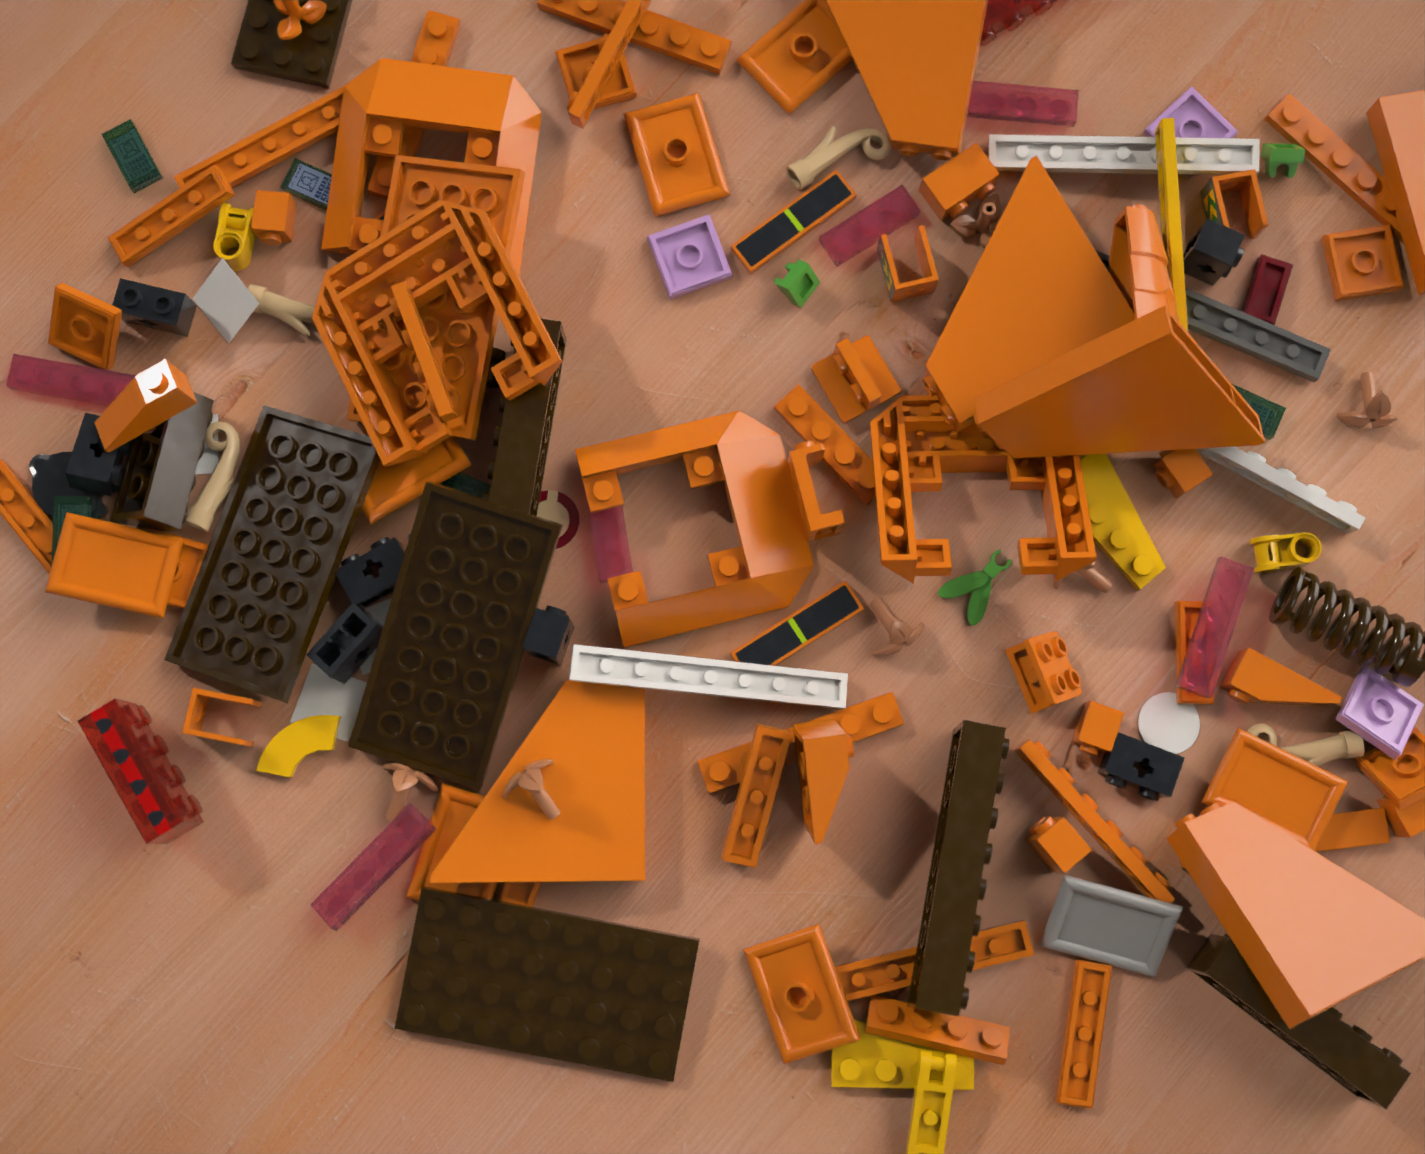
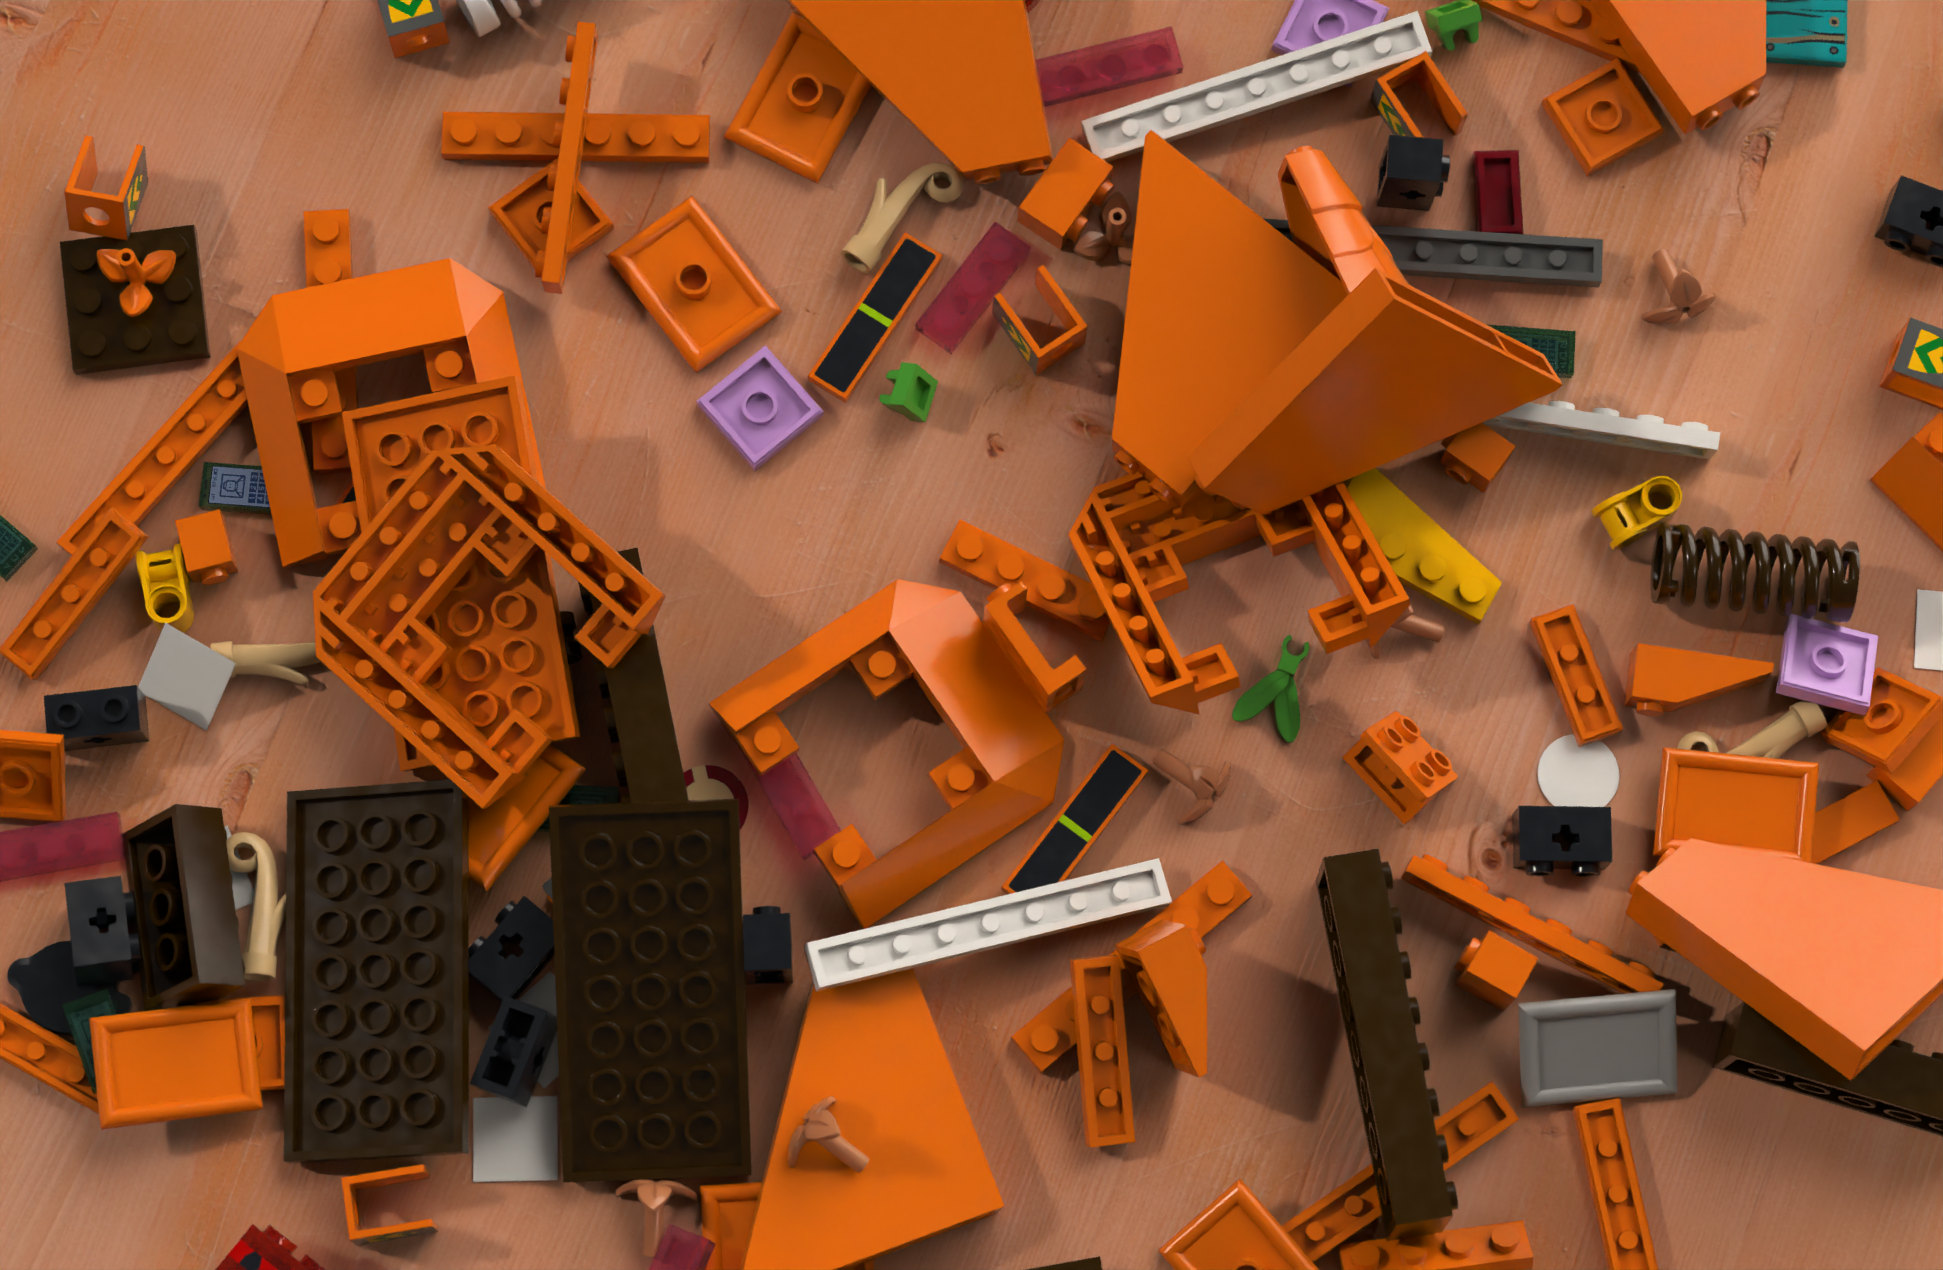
camera: 25 degrees left, 5 degrees down
(144, 404) = (144, 844): orange slope -> none
(297, 742) = (494, 1203): yellow tile -> none
(417, 339) = (493, 663): orange plate -> none
(855, 378) = (1028, 486): orange bracket -> none
(1097, 728) = (1491, 812): orange brick -> none
(1170, 211) = (1345, 147): yellow tile -> none
(1214, 627) = (1588, 634): clear pink plate -> none

